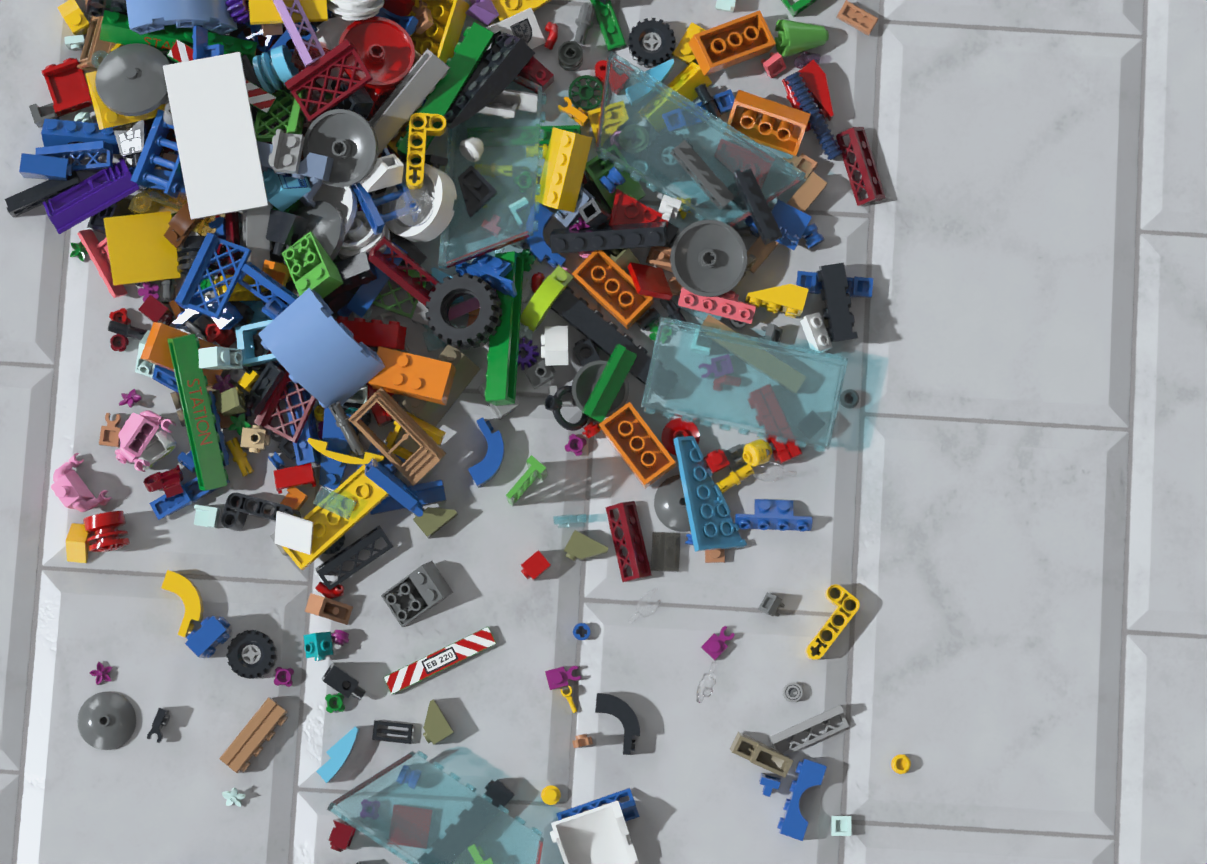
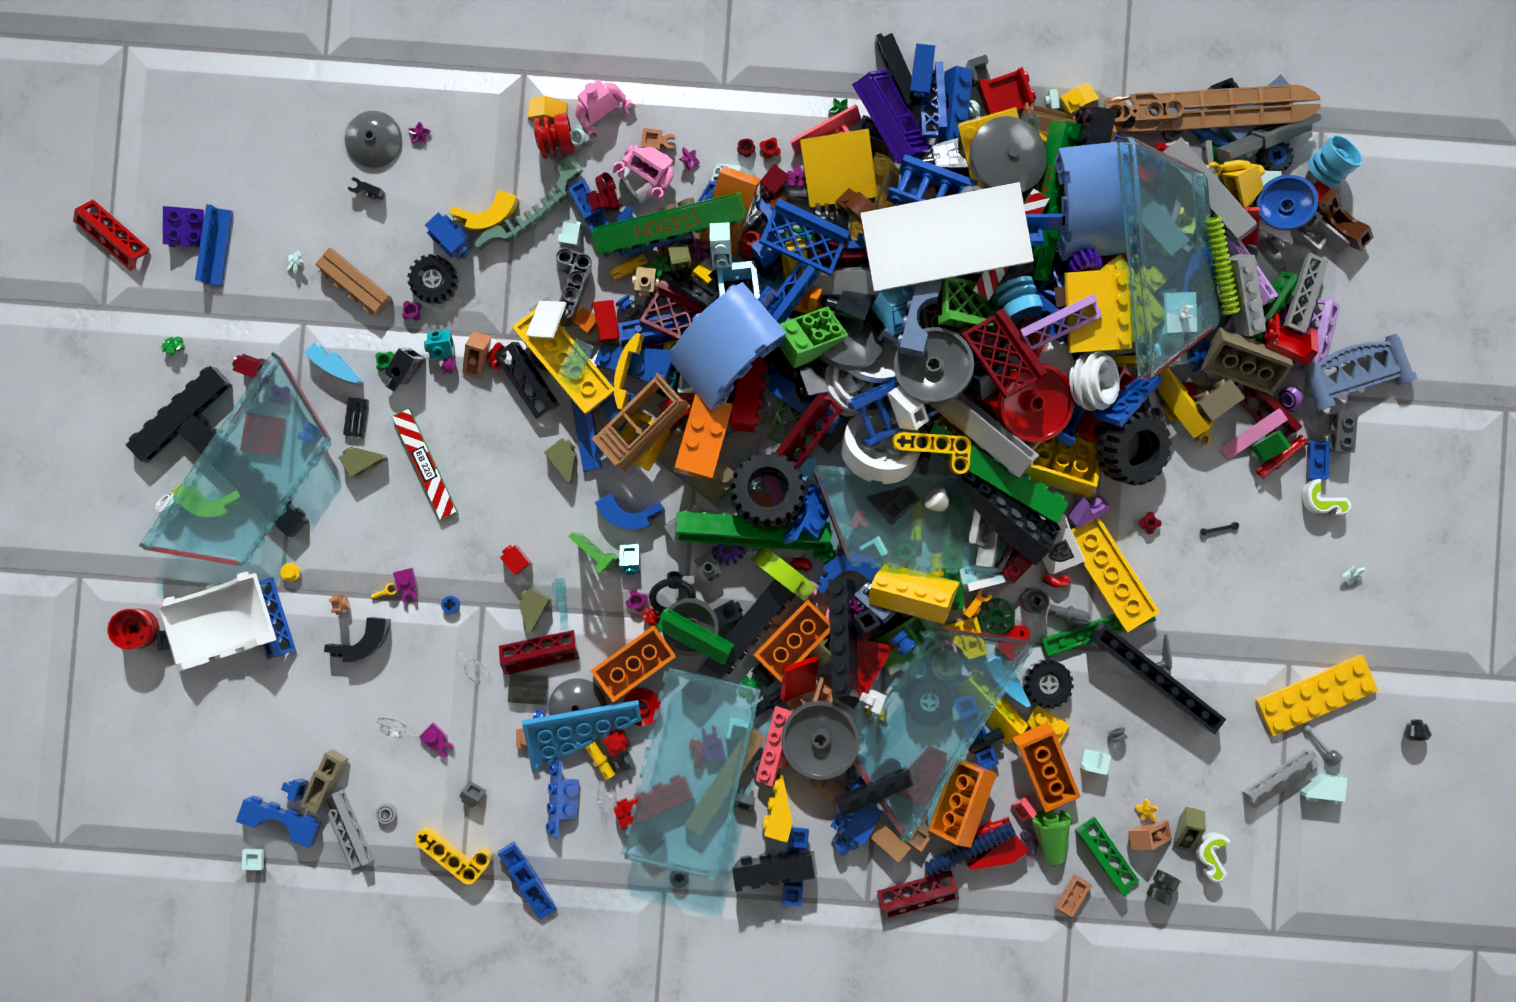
camera: 90 degrees right, 5 degrees up
(107, 504) = (583, 137): none -> light aqua plate
(126, 330) = (757, 153): black axle -> none
(141, 520) = (568, 170): none -> sand green piece
(286, 152) = (928, 309): light grey bracket -> none
(347, 429) = (650, 372): dark grey pin -> none
(394, 487) = (590, 418): blue hinge -> none
(416, 593) = (490, 442): dark grey slope -> none
(420, 213) = (866, 447): clear dish -> none
(424, 16) = (1075, 451): nougat plate -> none
(538, 449) = (629, 559): none -> bracket
(553, 114) = (979, 581): none -> white panel
(555, 345) = (735, 583): white brick -> none
(702, 174) = (907, 734): dark grey fence -> none
(757, 452) = (623, 784): yellow head -> none
(816, 332) = (744, 846): white bracket -> none
(855, 548) = (527, 880): none -> blue slope
(900, 764) = (312, 920): yellow plate -> none

